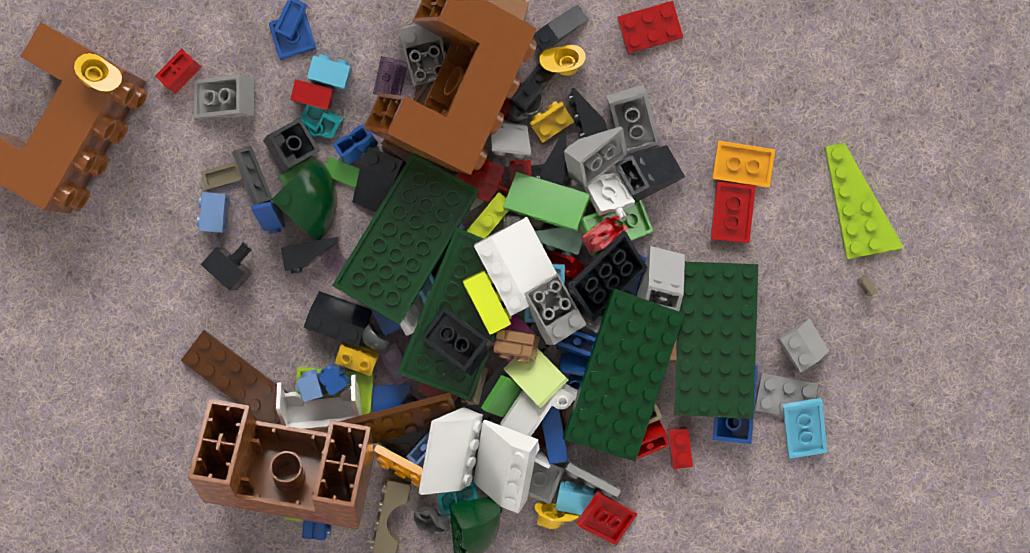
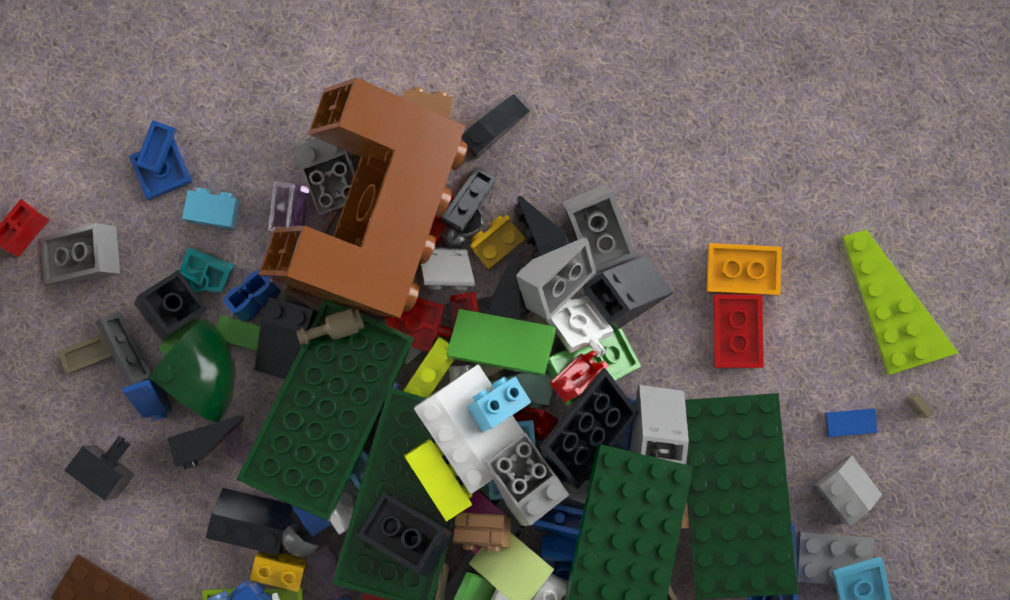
camera: 10 degrees left, 5 degrees down
(213, 212) = (77, 402): medium blue brick -> none
(312, 94) = (192, 239): red hinge -> none
(420, 175) = (336, 325): none -> dark tan piece
(538, 250) = (498, 404): none -> medium azure brick
(563, 59) = (503, 163): yellow piece -> none
(650, 27) = (607, 112): red plate -> none
(812, 293) = (851, 422): none -> blue tile

